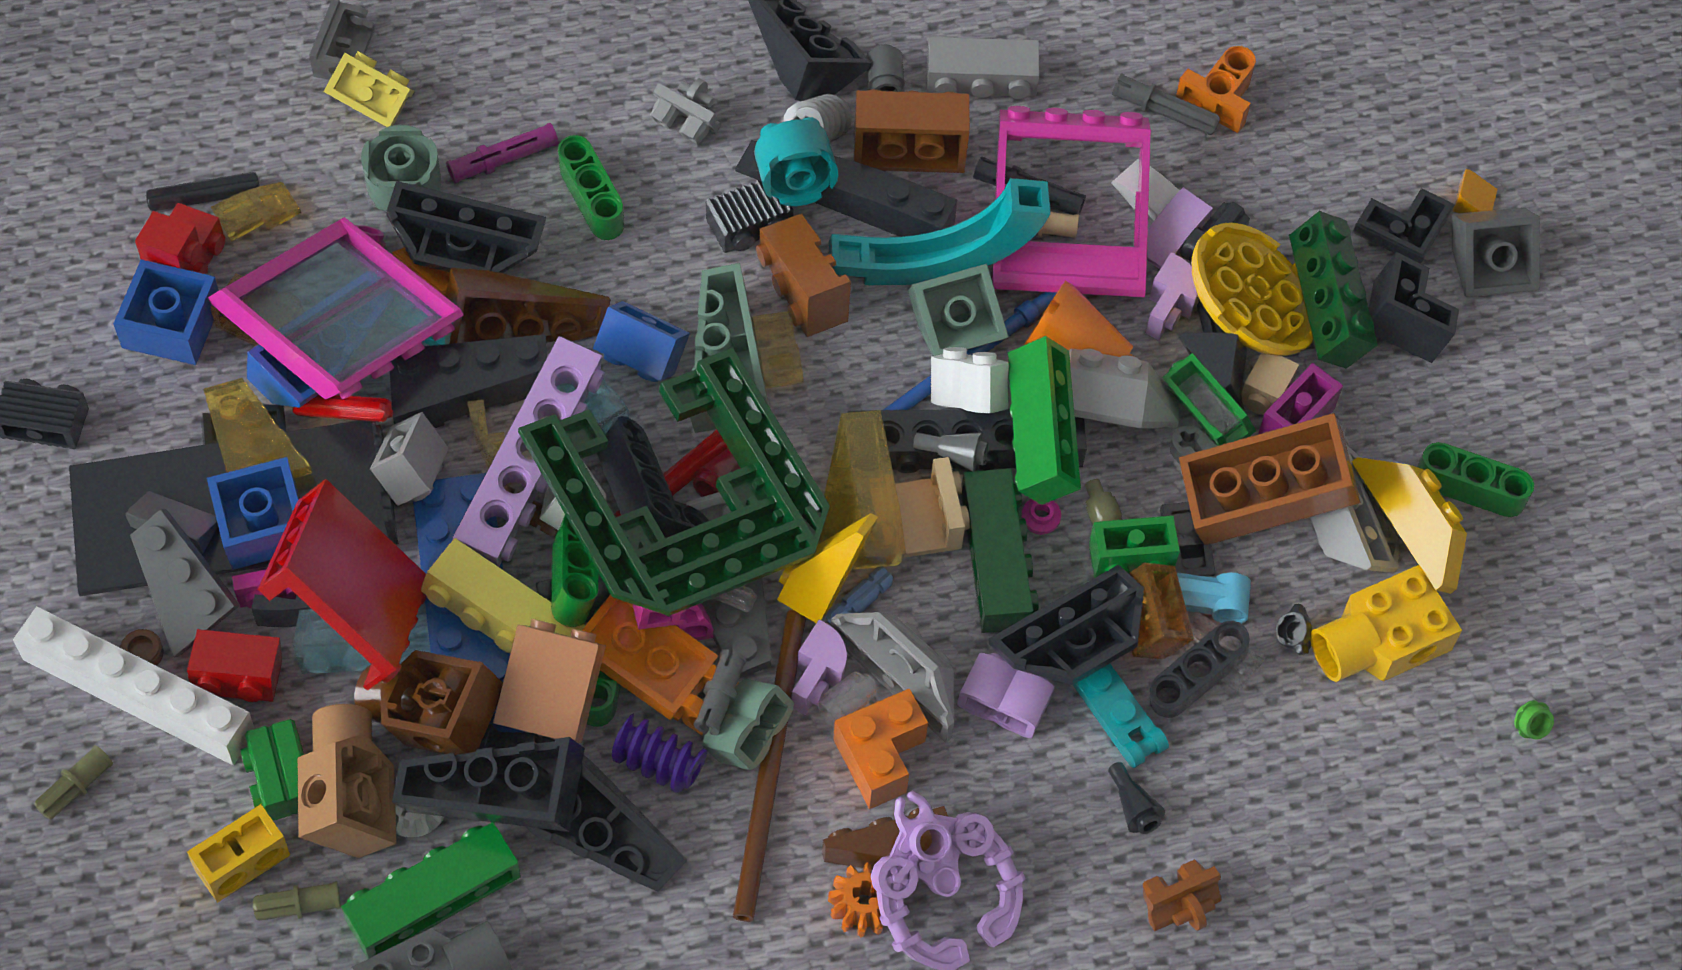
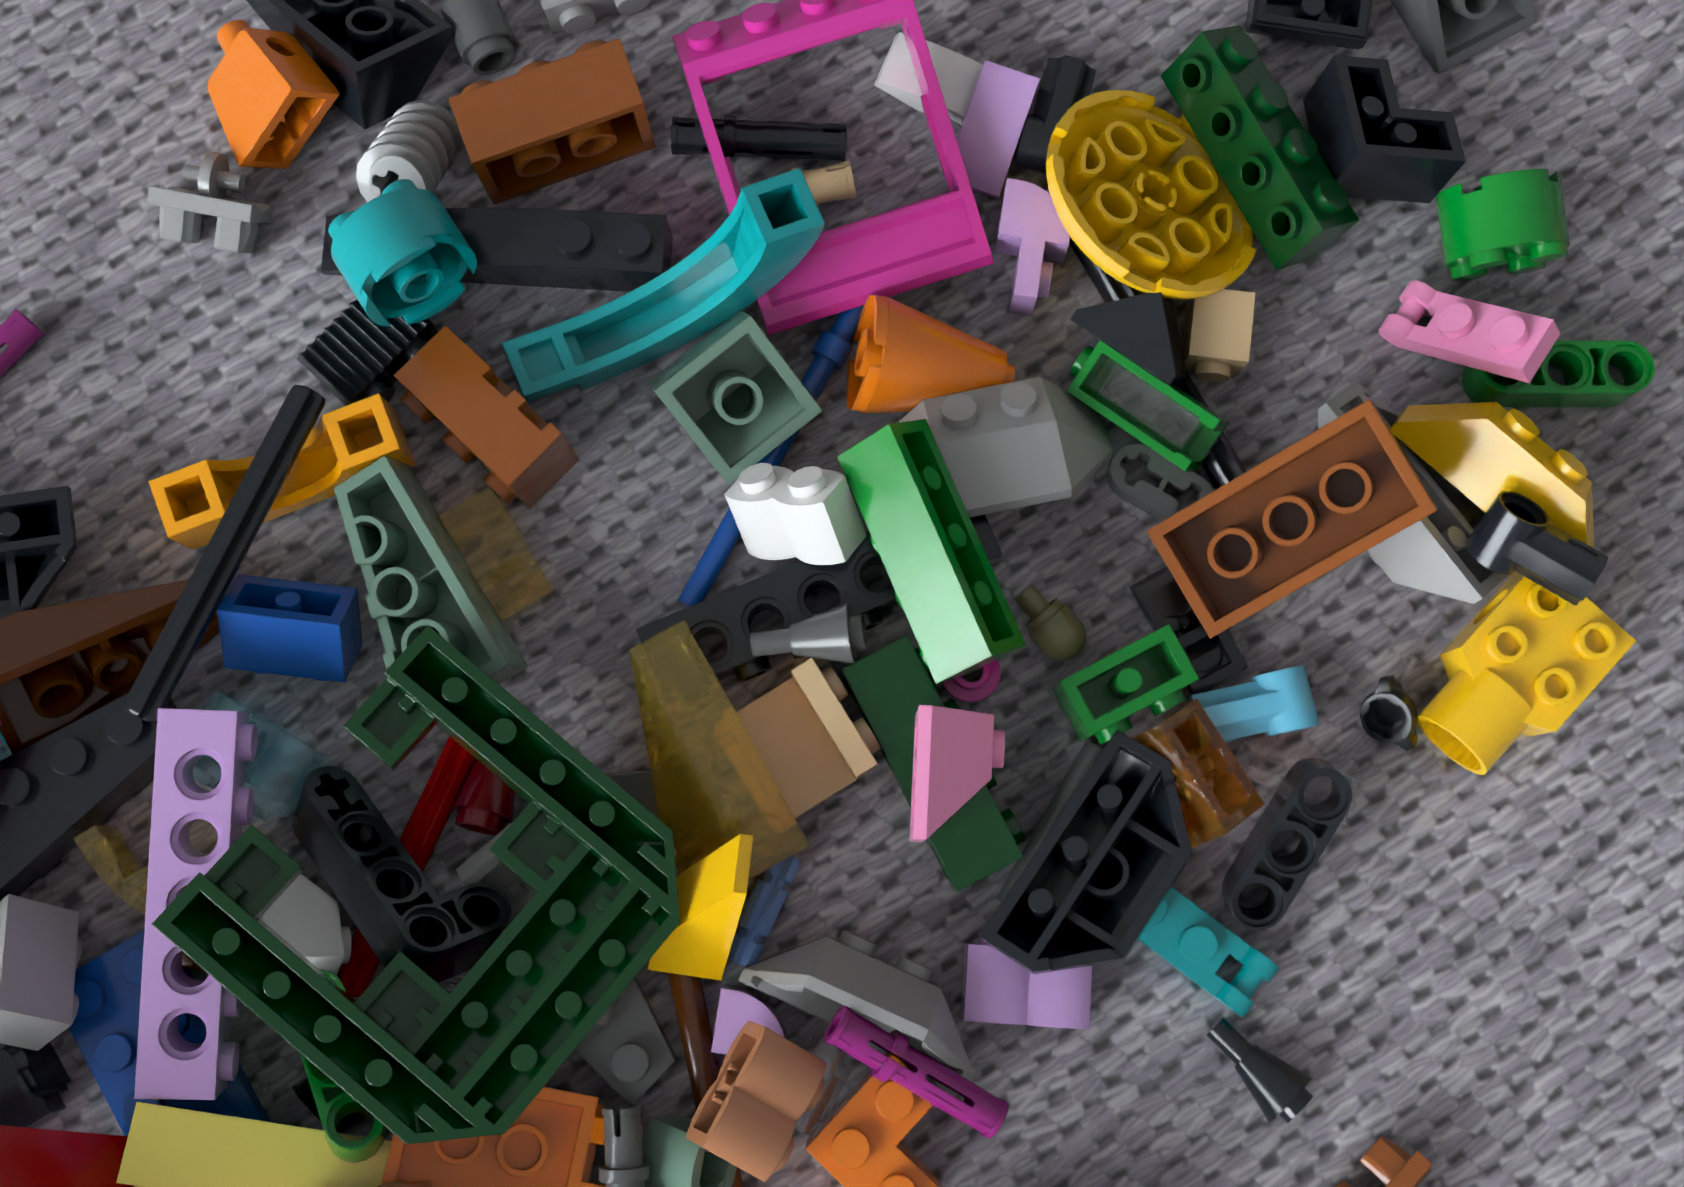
camera: 15 degrees left, 20 degrees up
(588, 173) = (97, 380): green beam -> none
(625, 279) = (224, 554): none -> black axle
(631, 261) = (335, 450): none -> light orange arch
(747, 62) = (267, 94): none -> orange torso
(819, 674) = (757, 1101): none -> nougat brick
(921, 696) = (979, 1108): none -> magenta pin
(1007, 532) = (950, 763): none -> bright pink slope
(1307, 398) = (1281, 364): magenta brick -> none
(1405, 541) = (1519, 538): none -> black piece
(1423, 431) = (1470, 332): none -> bright pink plate
(1468, 381) = (1505, 220): none -> green brick

